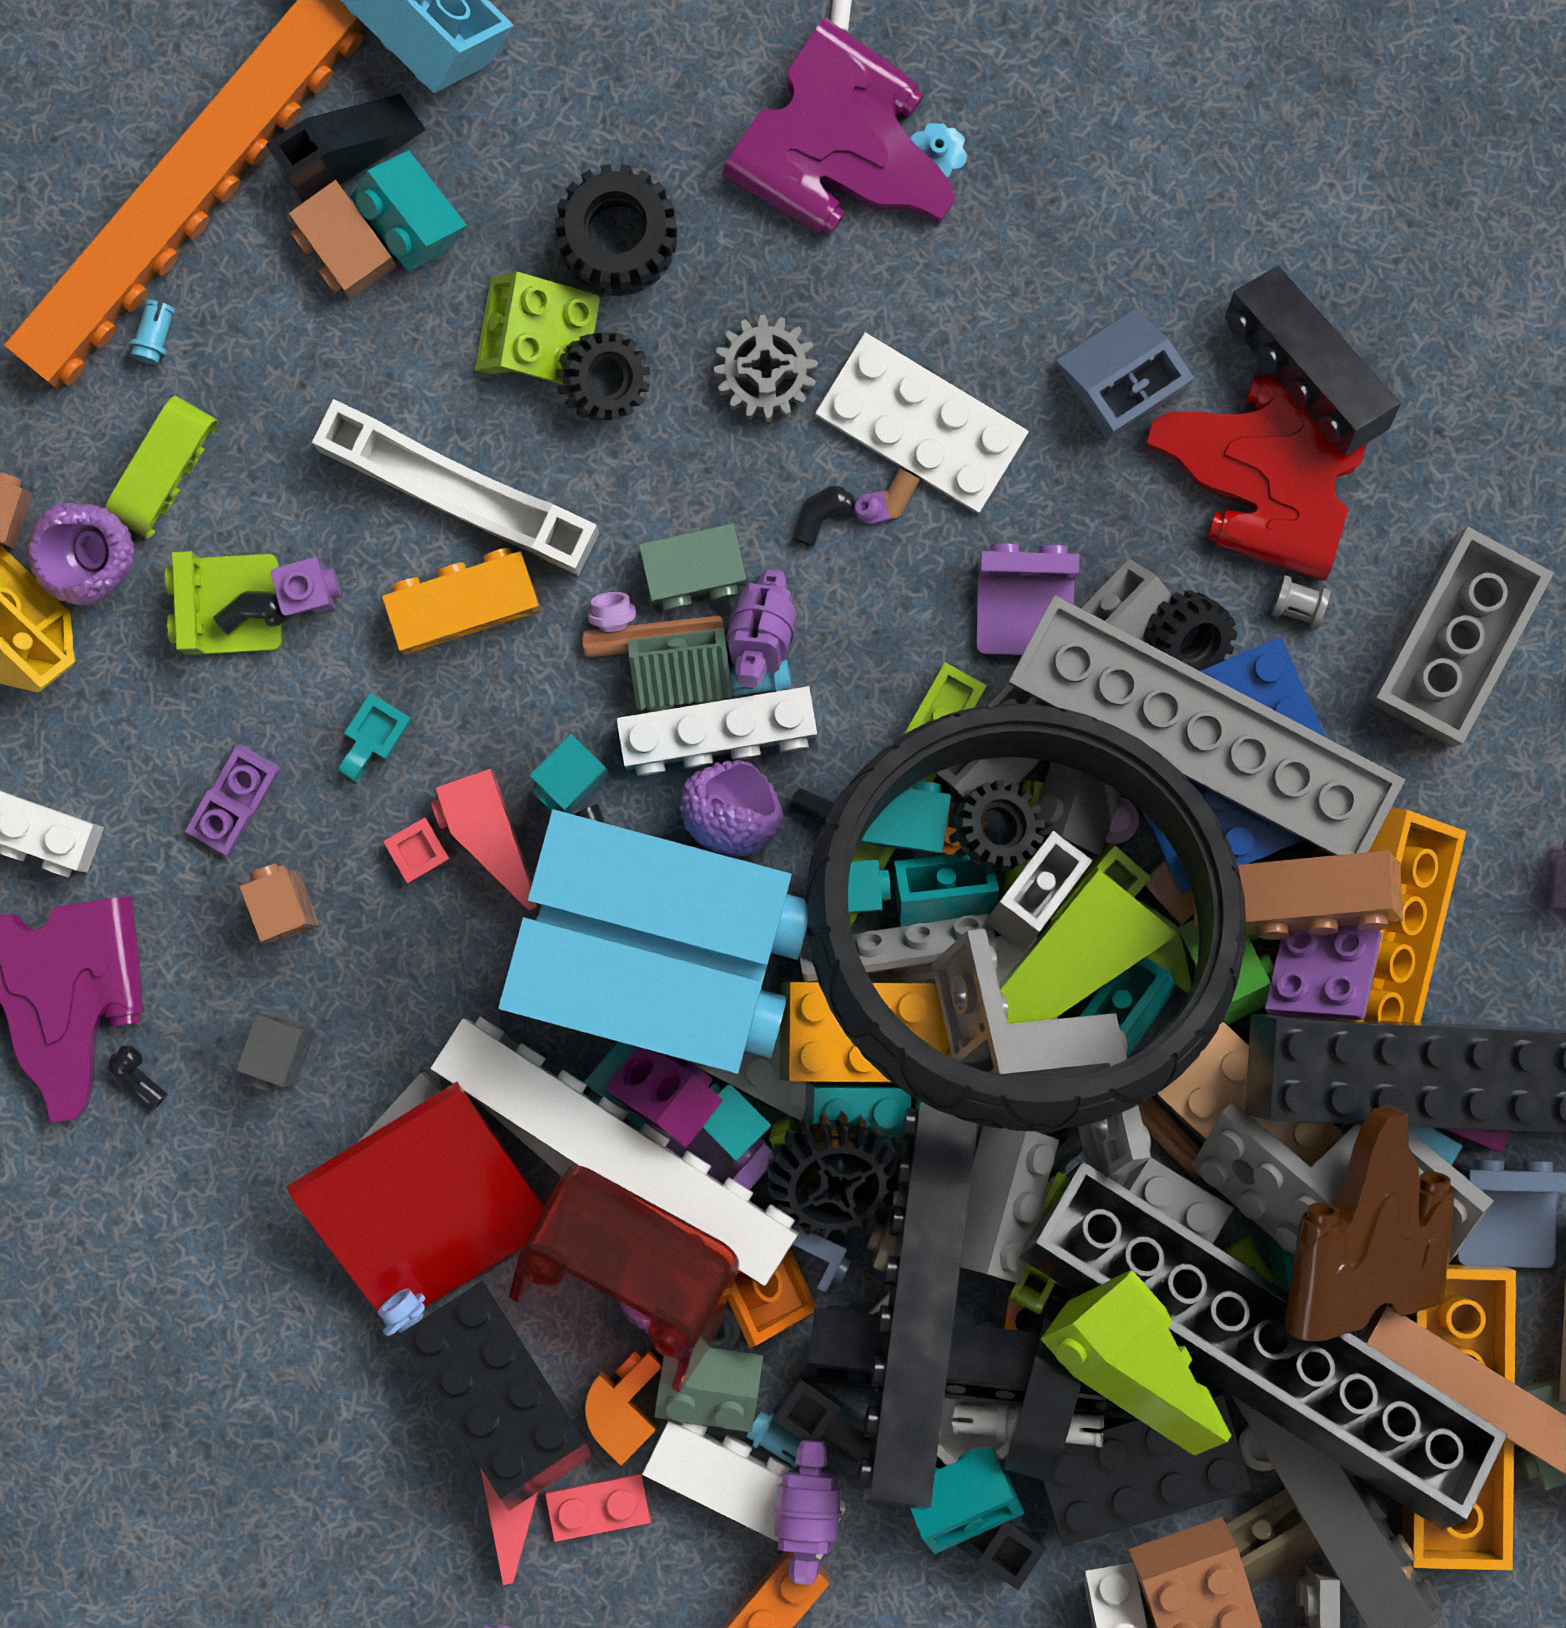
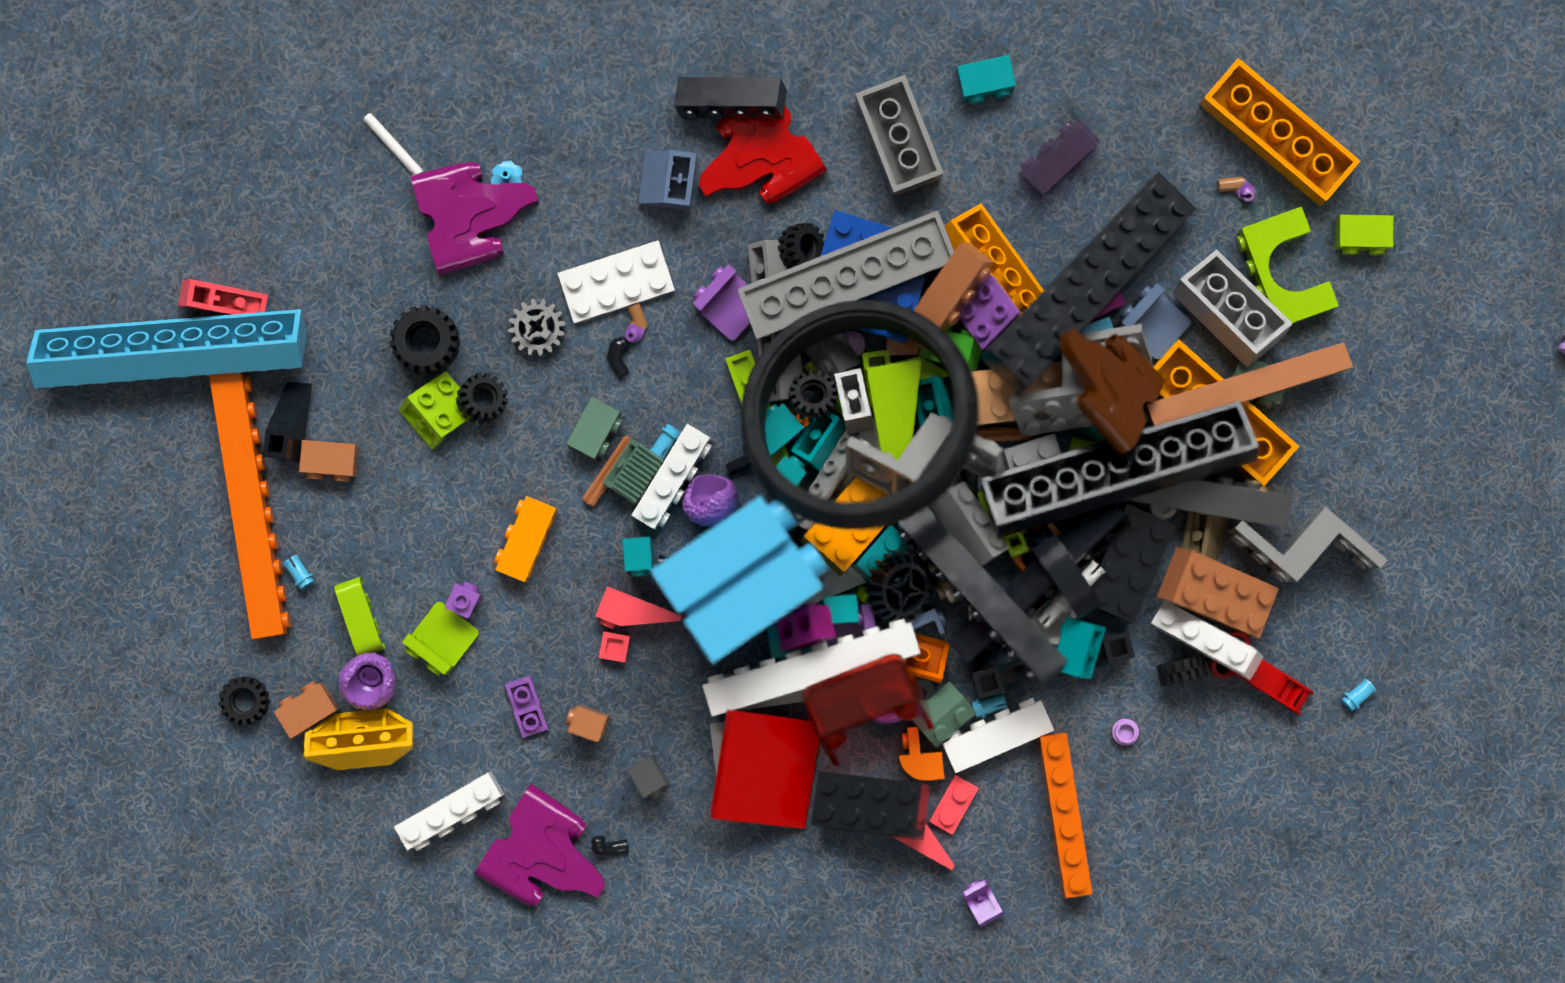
camera: 45 degrees left, 0 degrees up
(250, 605) = (451, 628): black arm -> none
(375, 731) = (549, 621): teal plate -> none
(401, 1311) = (802, 816): light blue plate -> none
(408, 211) = (341, 420): teal brick -> none
(455, 489) = (476, 501): white arch -> none
(611, 611) = (584, 479): lavender plate -> none
(761, 628) = (645, 422): medium lavender piece -> none
(807, 1512) = (1028, 716): medium lavender piece -> none
(1123, 1349) = (1073, 527): lime wedge -> none
(1300, 602) = (827, 189): light grey bush -> none

